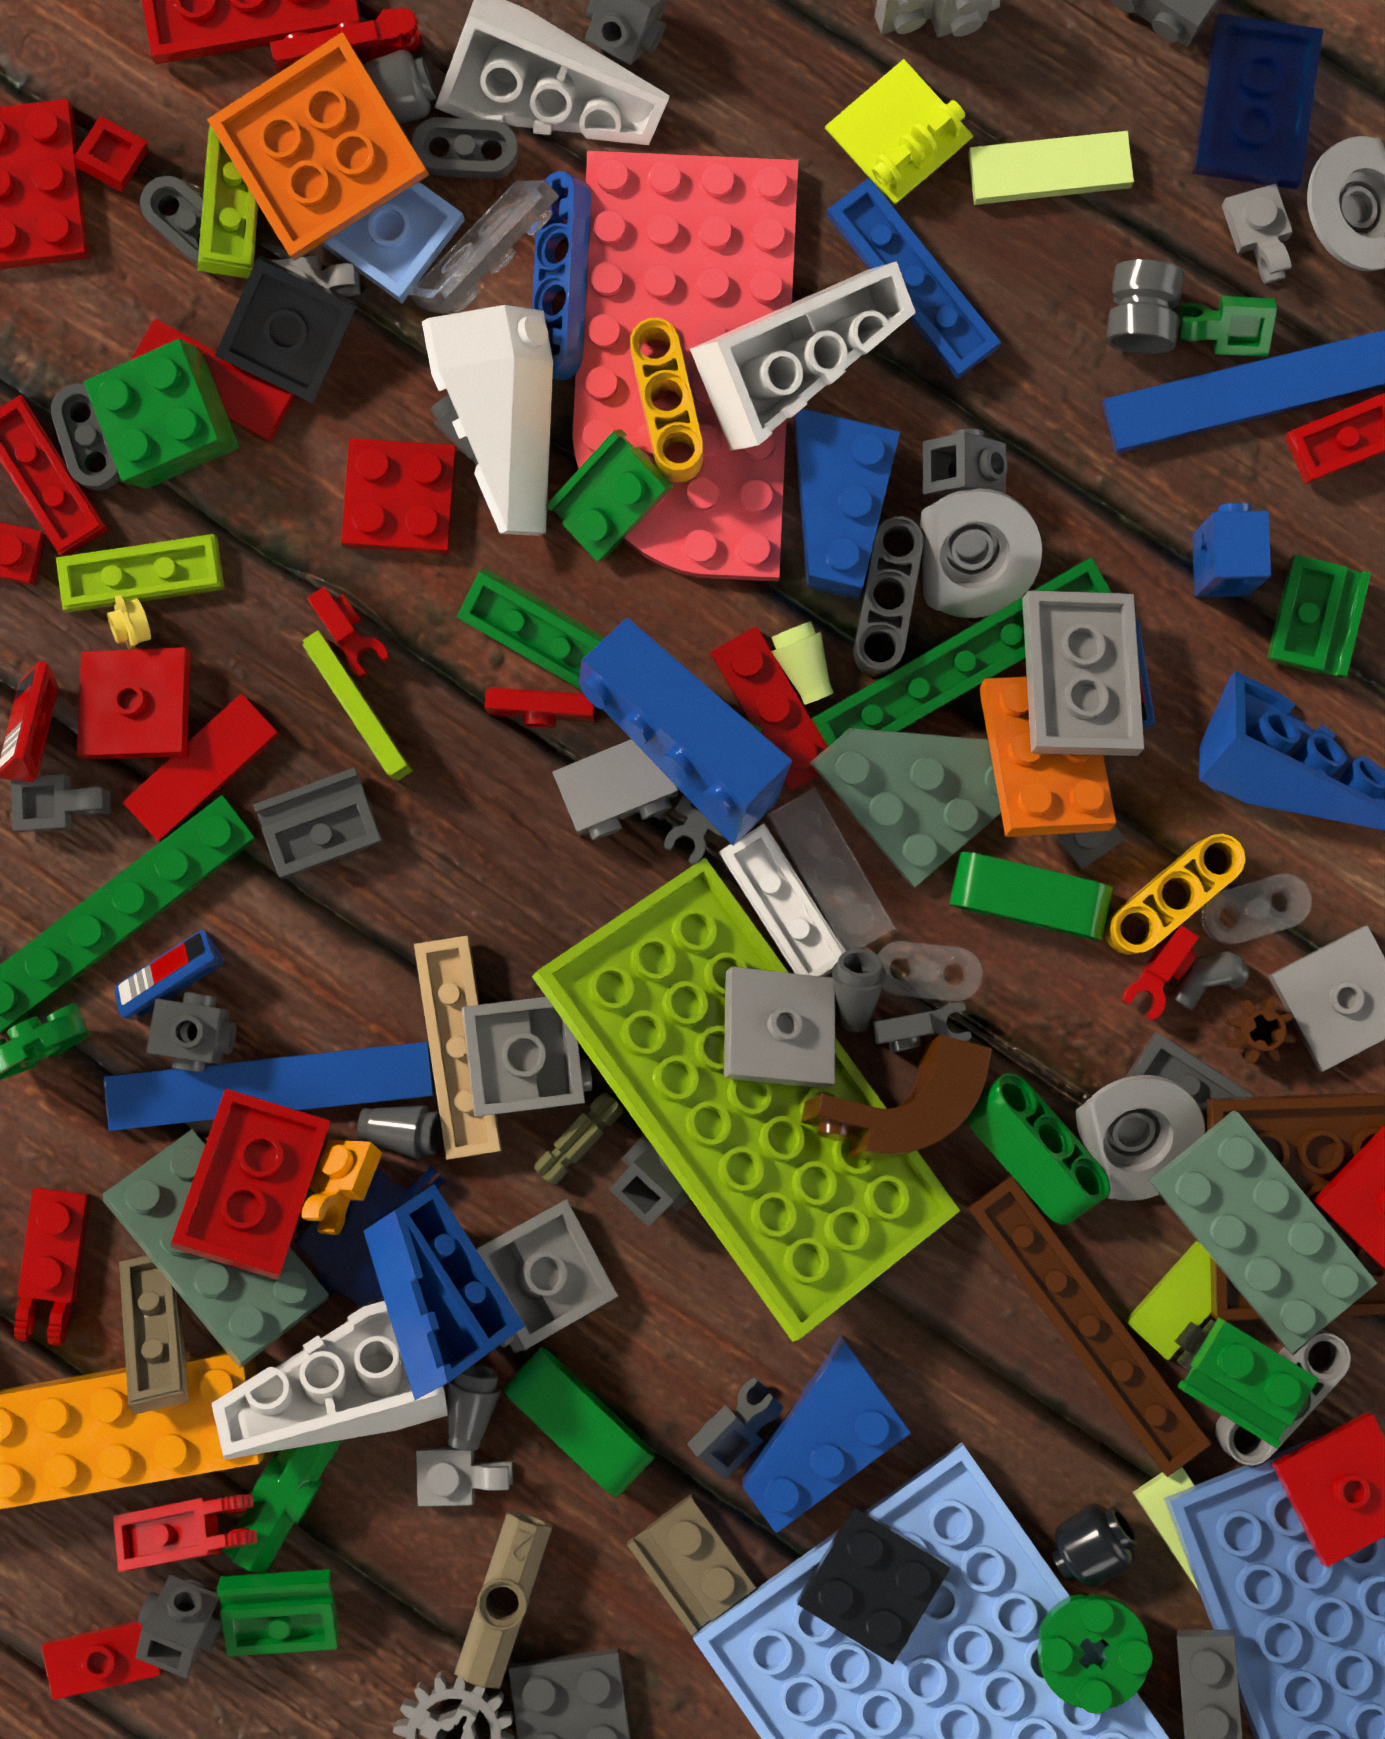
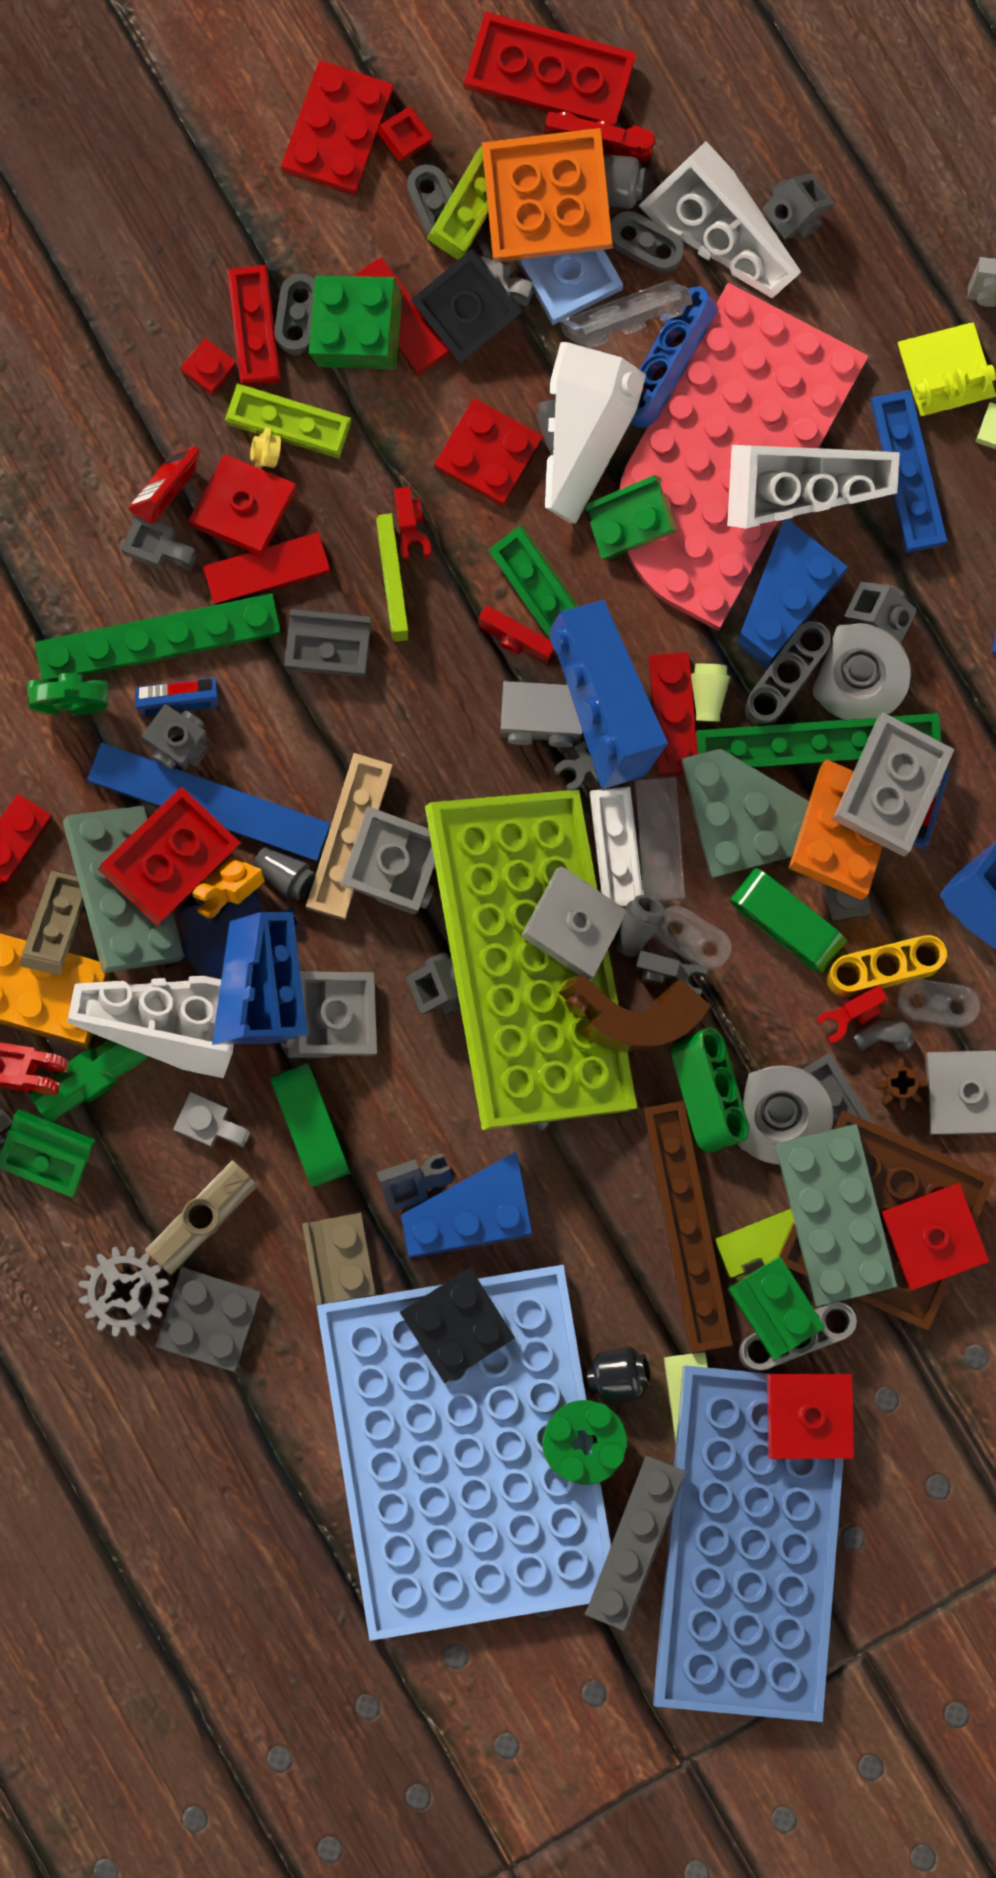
camera: 15 degrees right, 5 degrees down
(471, 1405) = (242, 1079): dark grey cone -> none
(578, 1138) = (401, 937): olive axle -> none
(666, 375) = (700, 454): yellow beam -> none

